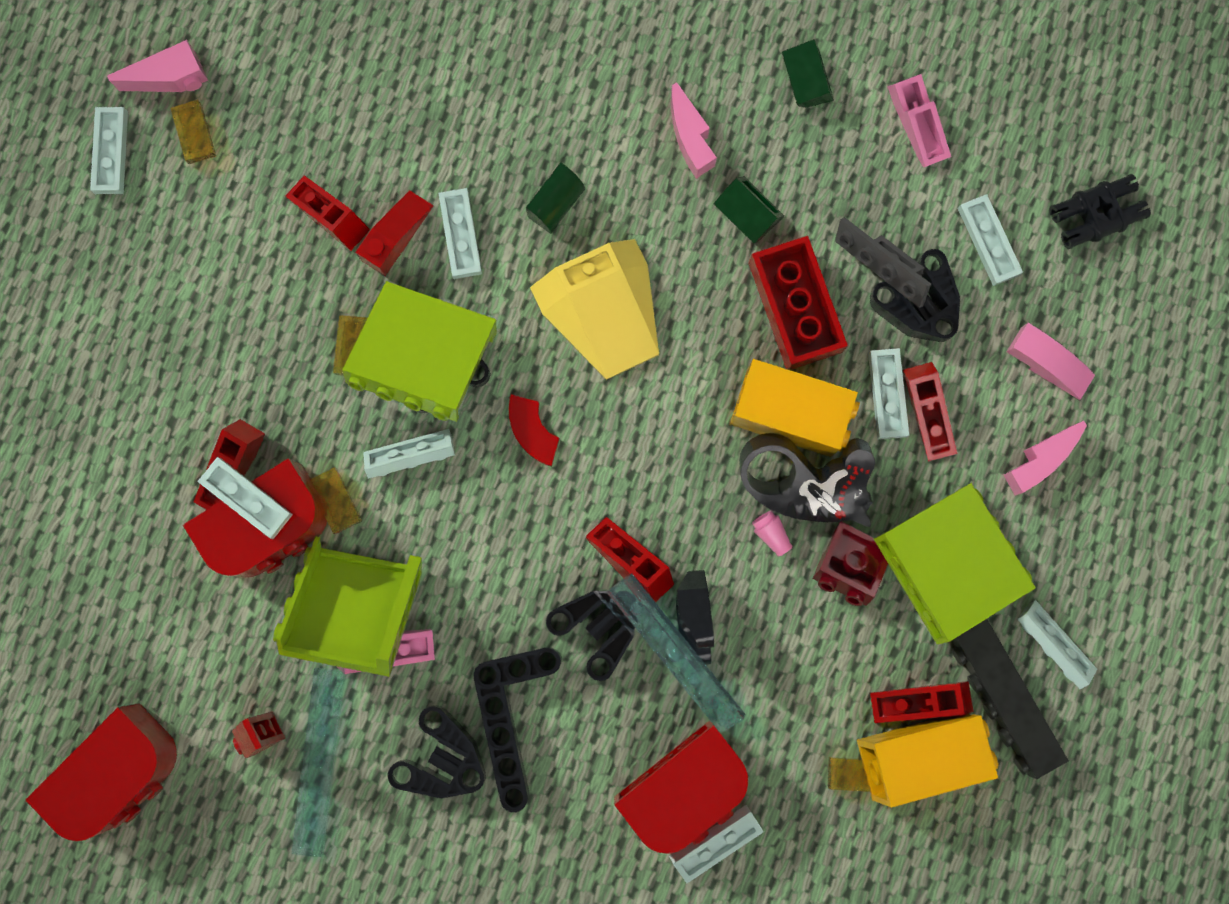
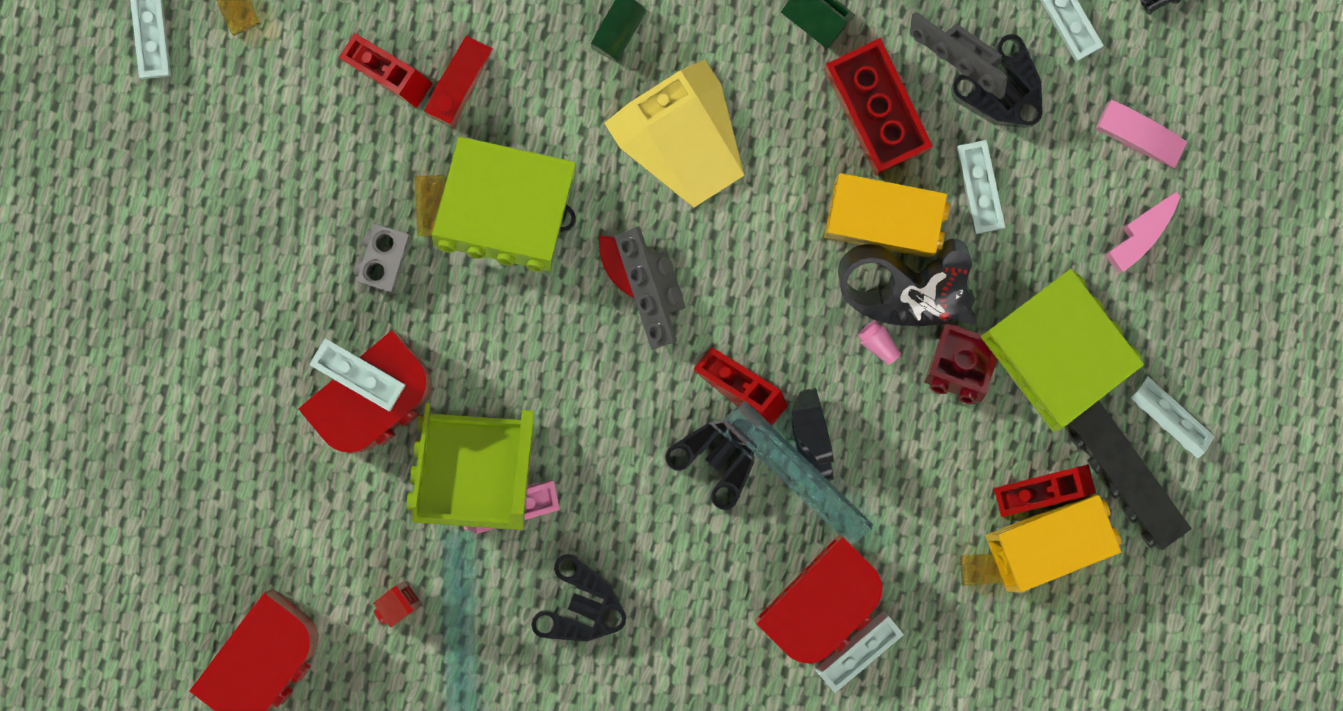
camera: 10 degrees left, 5 degrees up
(237, 447) = (332, 323): red slope -> none
(304, 393) = (390, 260): none -> light grey brick
(337, 502) = (442, 369): clear yellow plate -> none
(408, 453) = (505, 308): light aqua plate -> none
(460, 233) = (525, 75): light aqua plate -> none
(505, 719) = (637, 557): black beam -> none
(555, 449) = (652, 286): none -> dark grey bracket
(930, 410) = (1024, 200): red slope -> none

